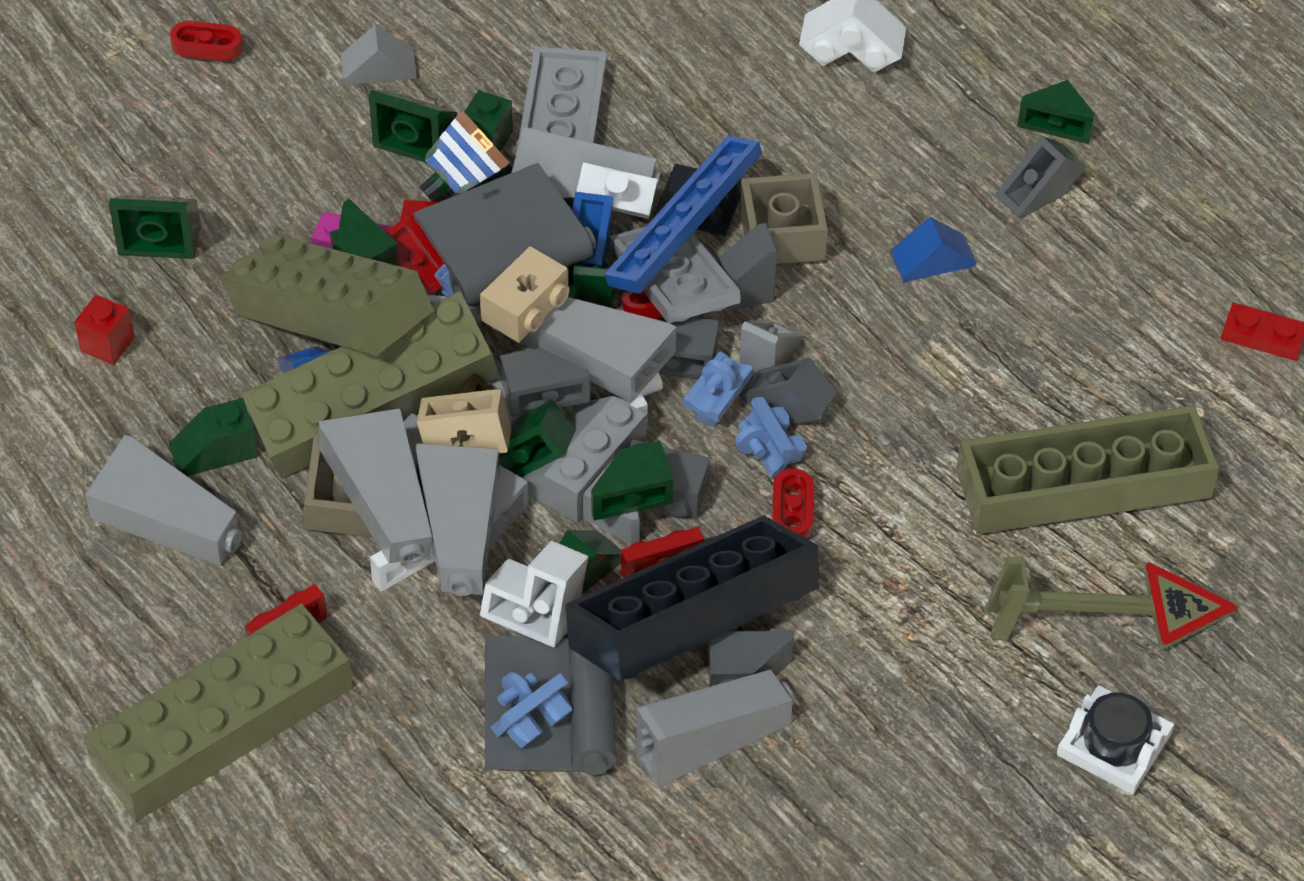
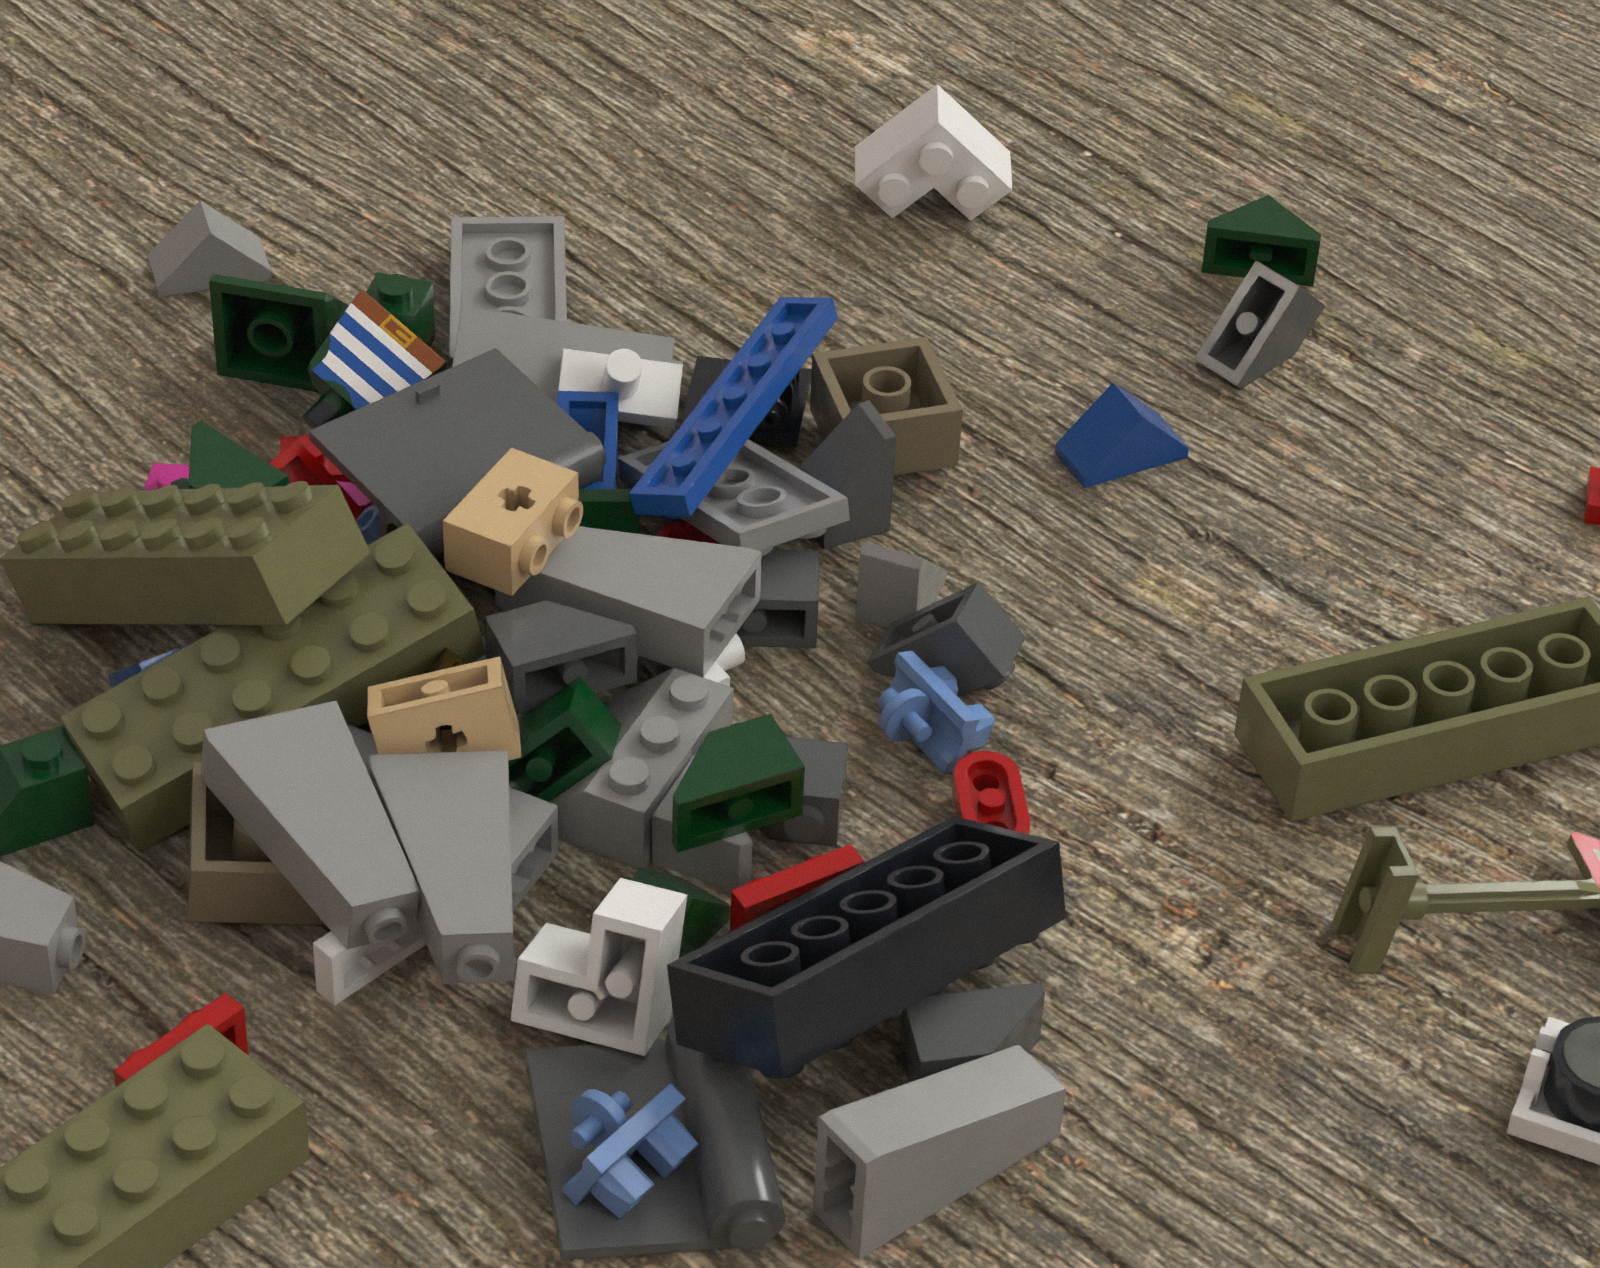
camera: 10 degrees left, 10 degrees down
(717, 388) = (833, 651): medium blue hips -> none

